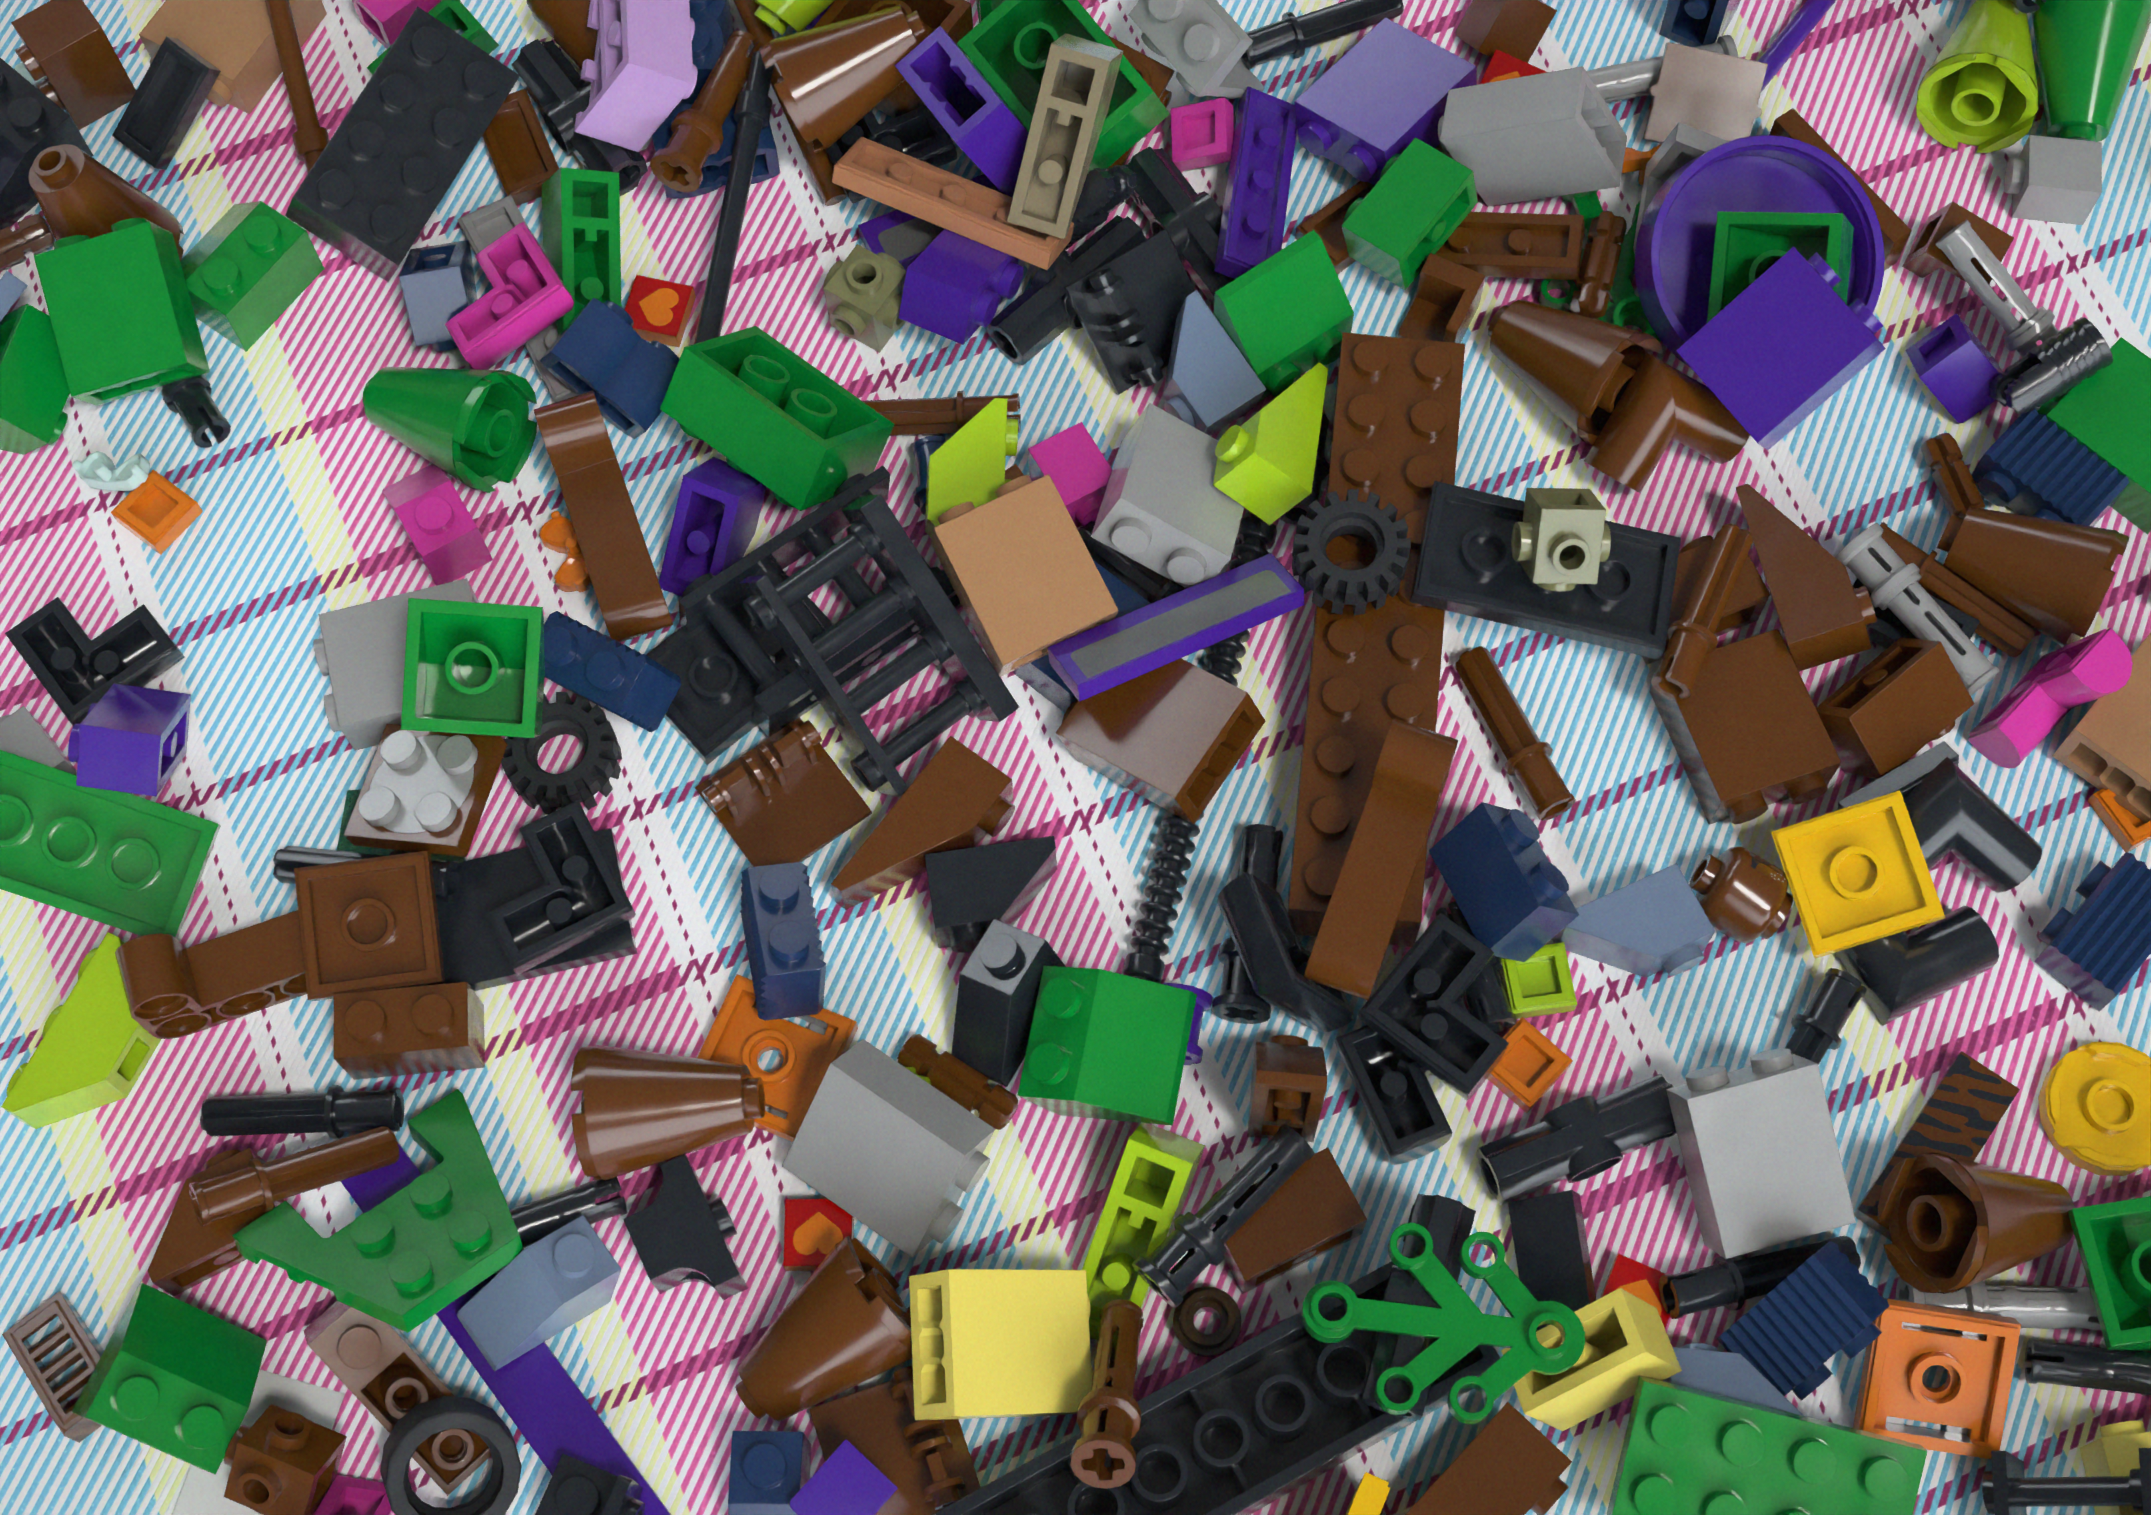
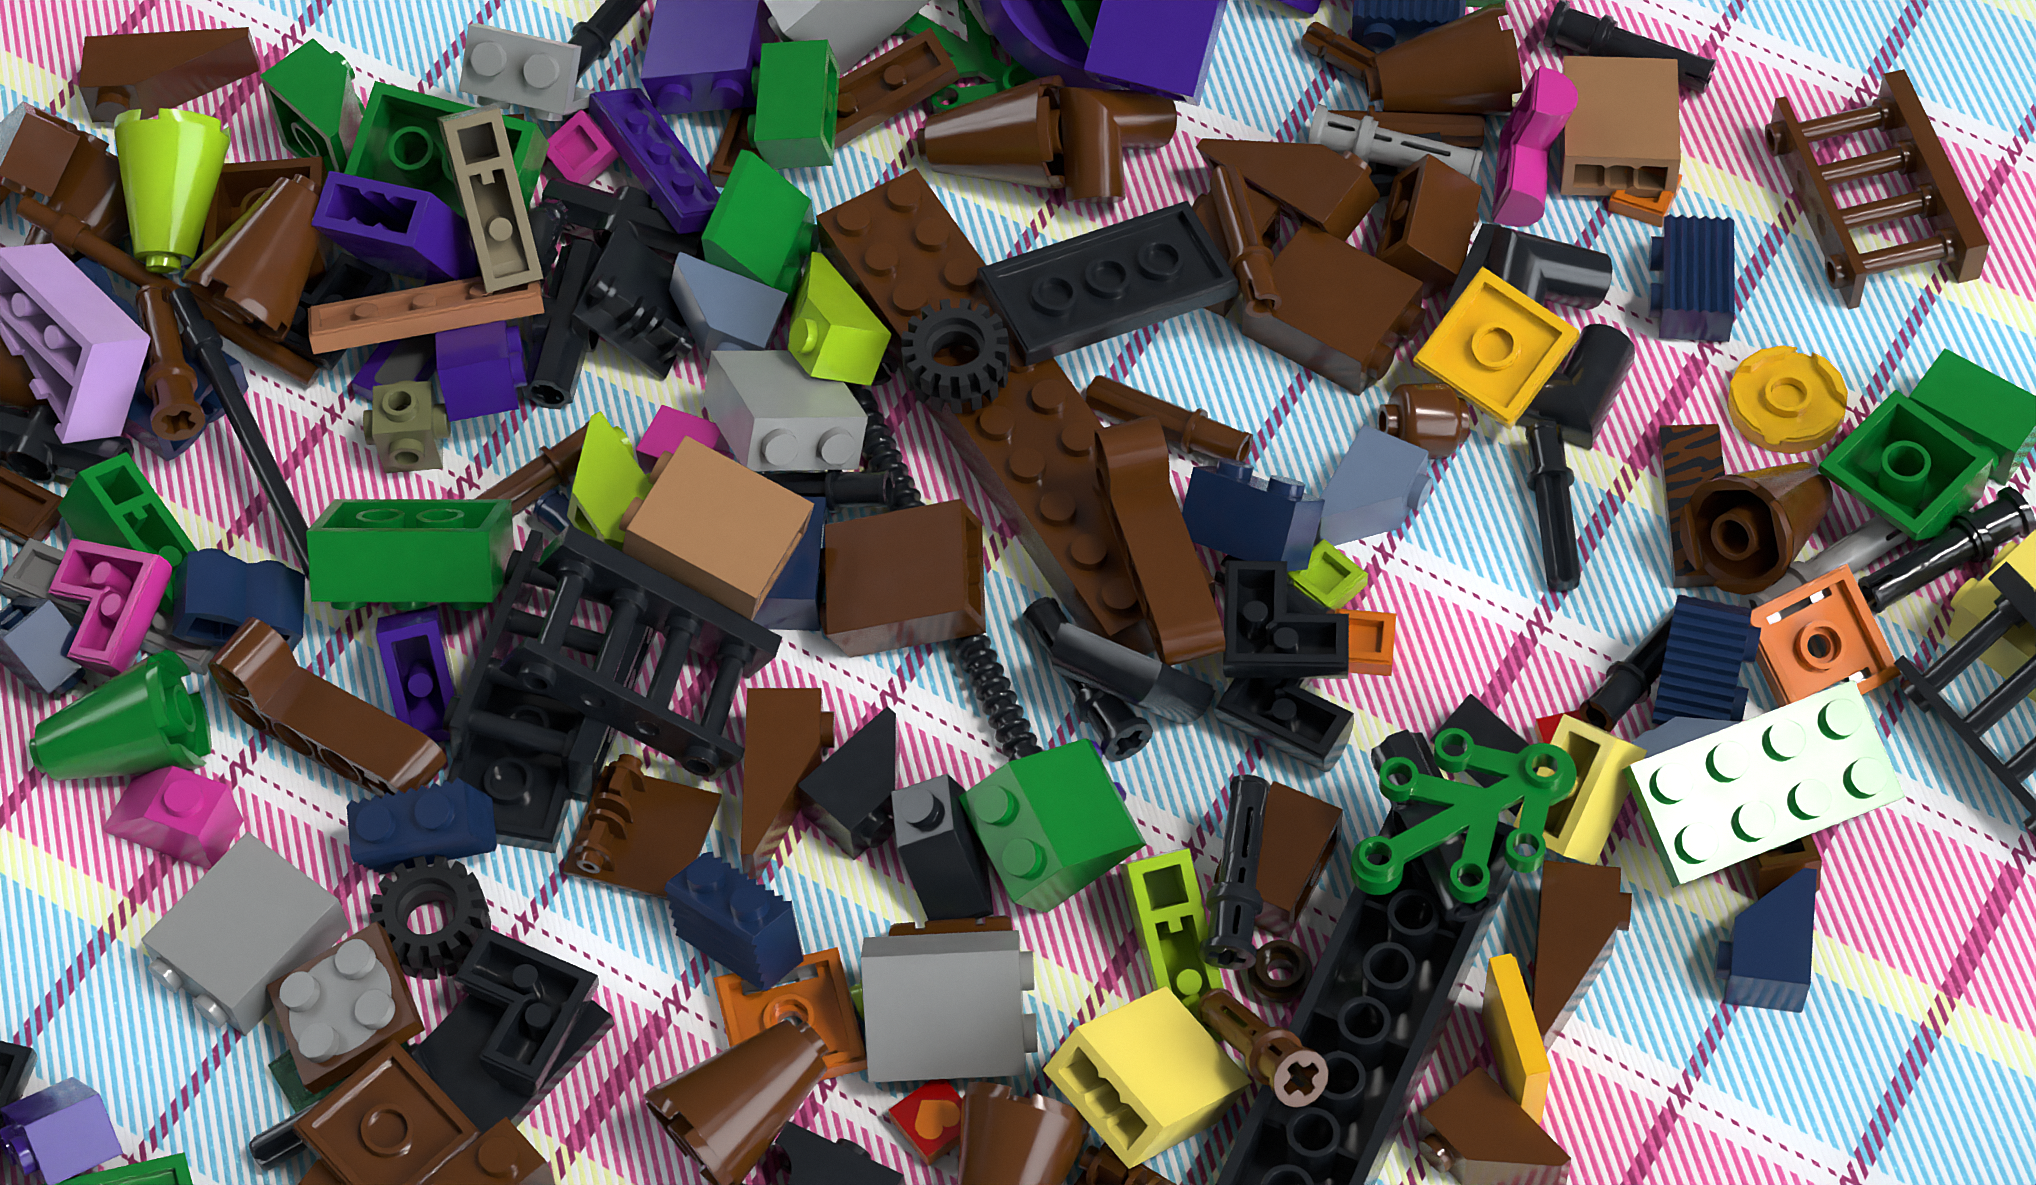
camera: 35 degrees left, 10 degrees down
(473, 668) = (327, 873): green slope -> none
(560, 537) = (291, 764): orange piece -> none
(660, 309) = (235, 536): tile -> none
(1175, 626) = (862, 494): tile -> none
(1286, 1087) = (1206, 757): reddish brown slope -> none
(1444, 302) = (867, 153): reddish brown panel -> none
(1561, 537) = (1108, 241): olive brick -> none
(1577, 1140) = (1447, 658): black piece -> none
(1599, 265) = (967, 57): reddish brown axle -> none
(1760, 1153) = (1580, 576): light grey brick -> none

